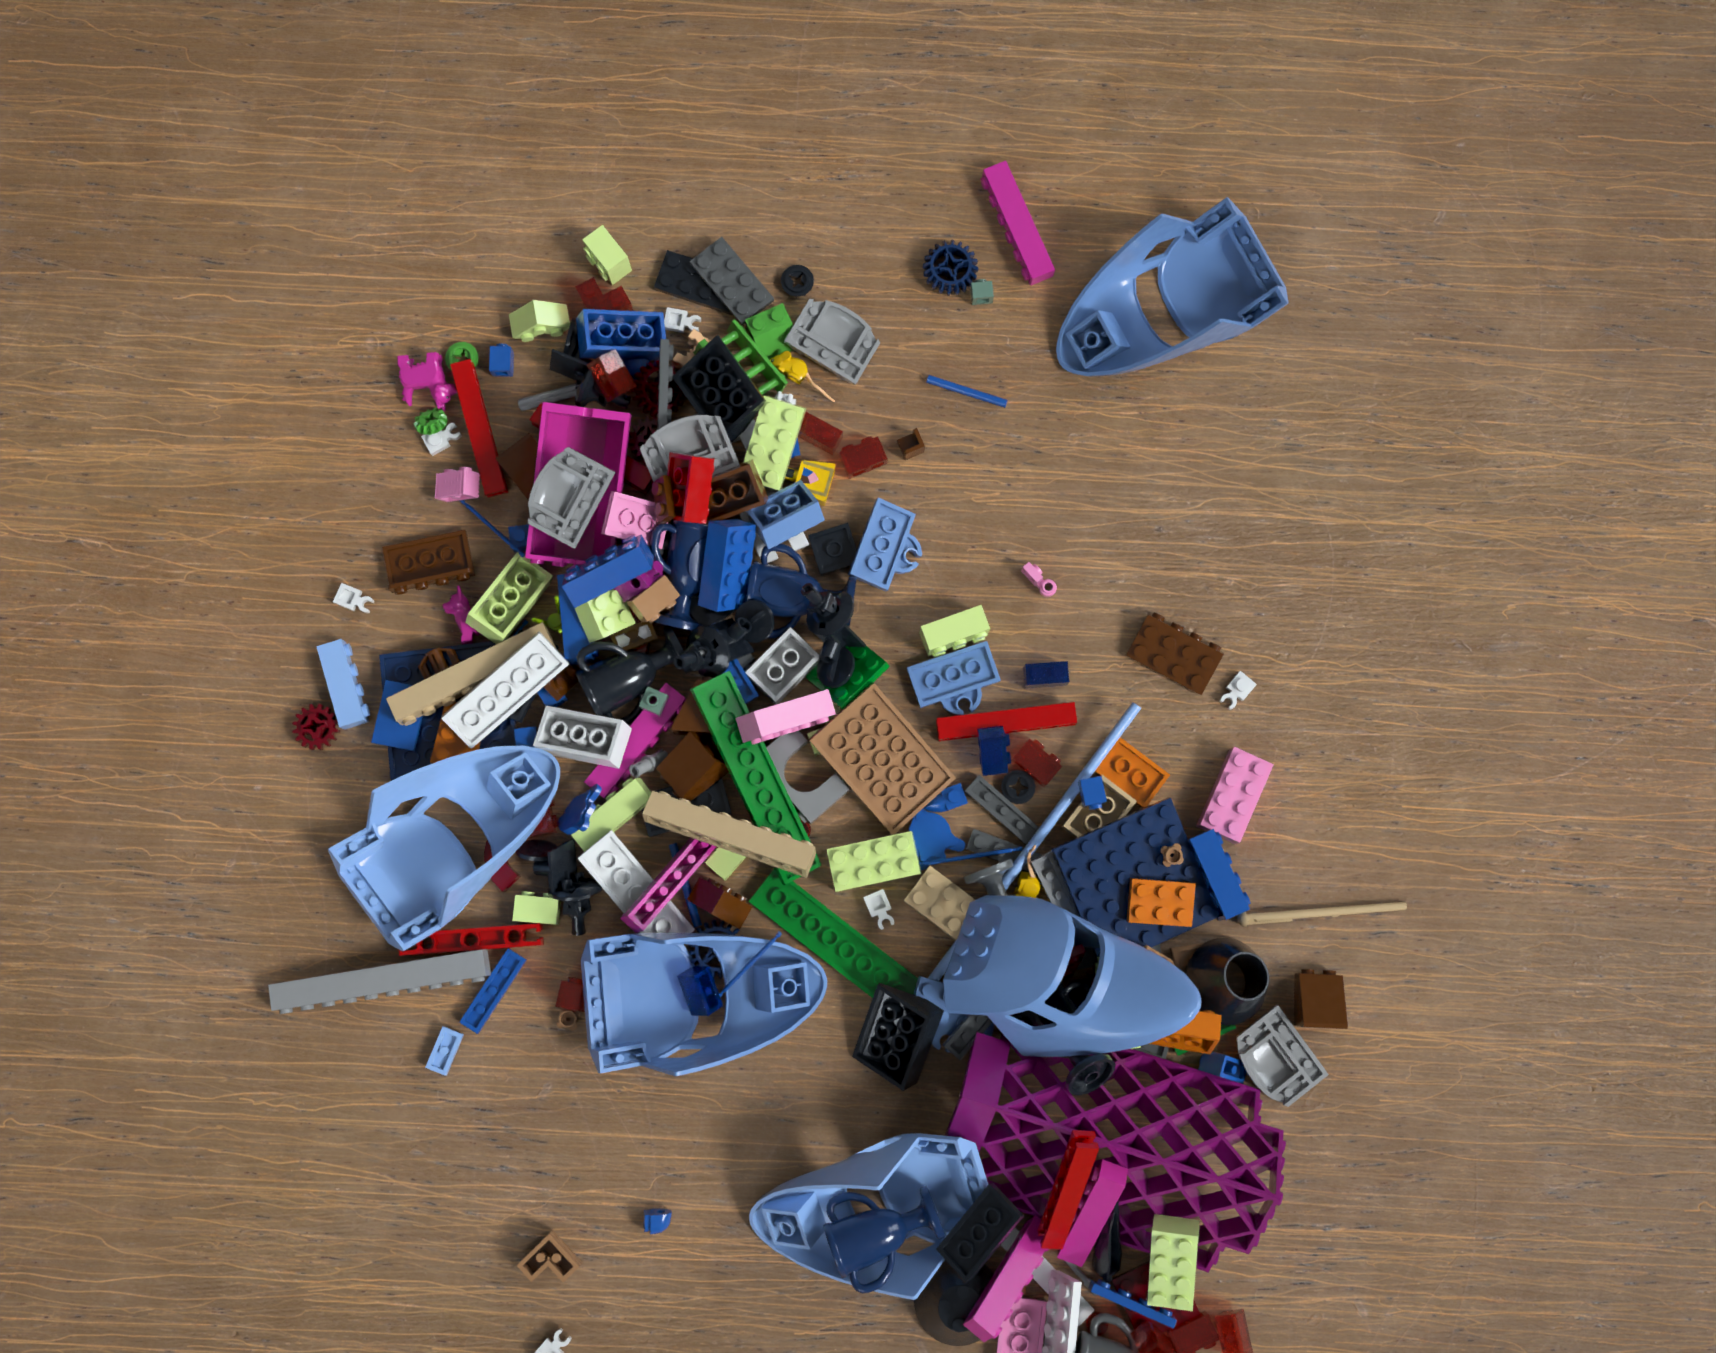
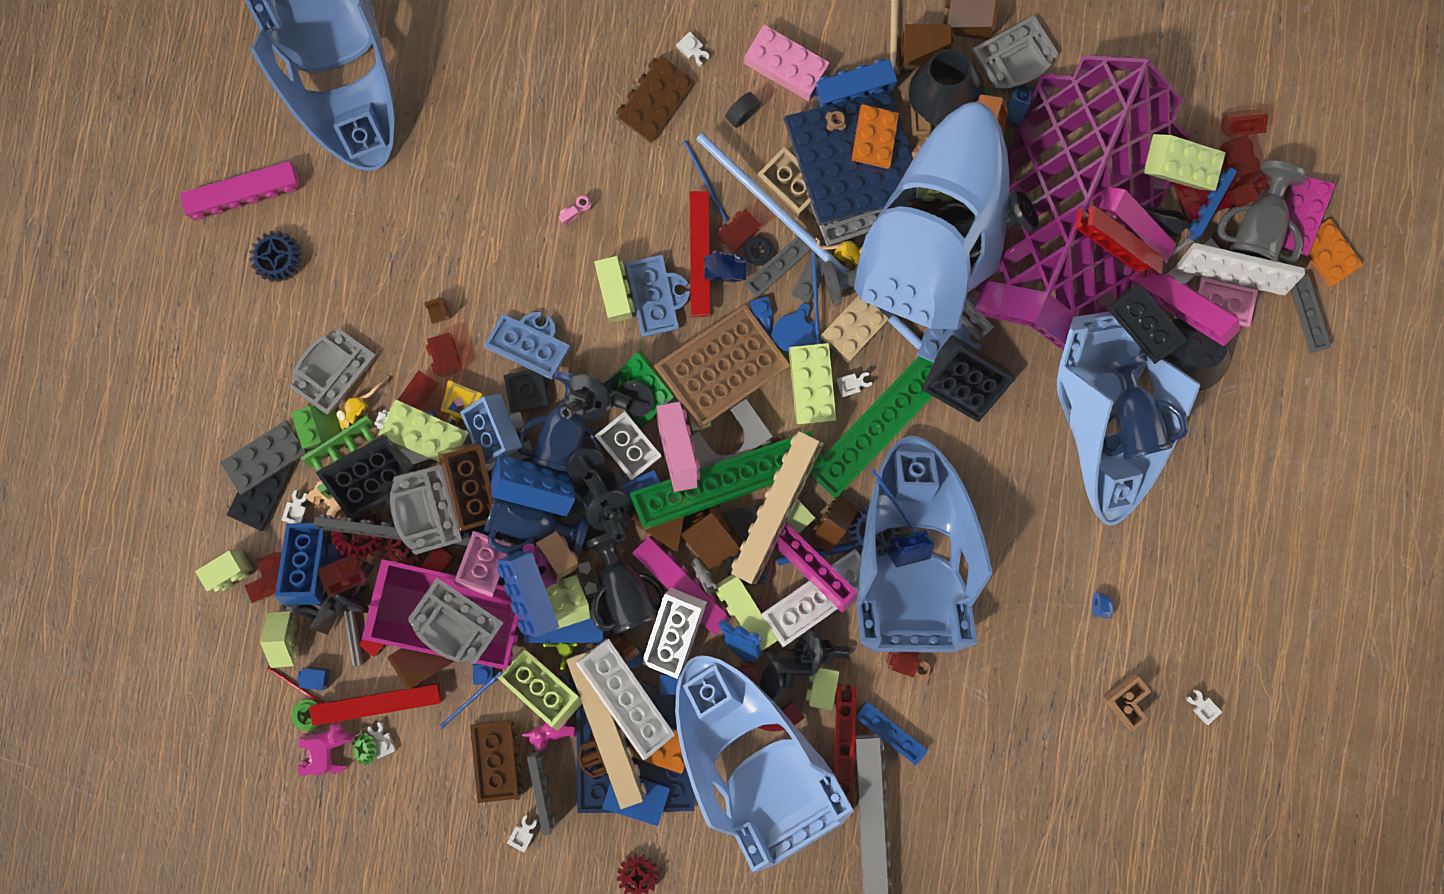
camera: 80 degrees left, 5 degrees up
(343, 684) = (600, 848): light blue brick -> none
(392, 615) = (543, 797): none -> dark grey plate
(444, 1050) = (939, 780): light blue plate -> none
(457, 485) = (427, 728): bright pink brick -> none
(492, 342) = (295, 685): none -> red piece
(656, 708) = (655, 565): sand green plate -> none
(663, 499) = (466, 536): reddish brown plate -> none
(690, 486) = (458, 513): red slope -> none
(795, 272) = (262, 399): black gear -> none
(966, 391) = (393, 255): blue bar -> none
(981, 292) = (302, 230): sand green plate -> none
(1046, 674) = (661, 214): clear blue brick -> none
(1090, 720) = (706, 181): none -> blue piece
(1092, 792) = (773, 183): blue brick -> none
(1132, 772) = (757, 148): orange plate -> none
(1174, 751) = (743, 109): none -> black tyre
(1276, 947) = (922, 42): none -> reddish brown slope

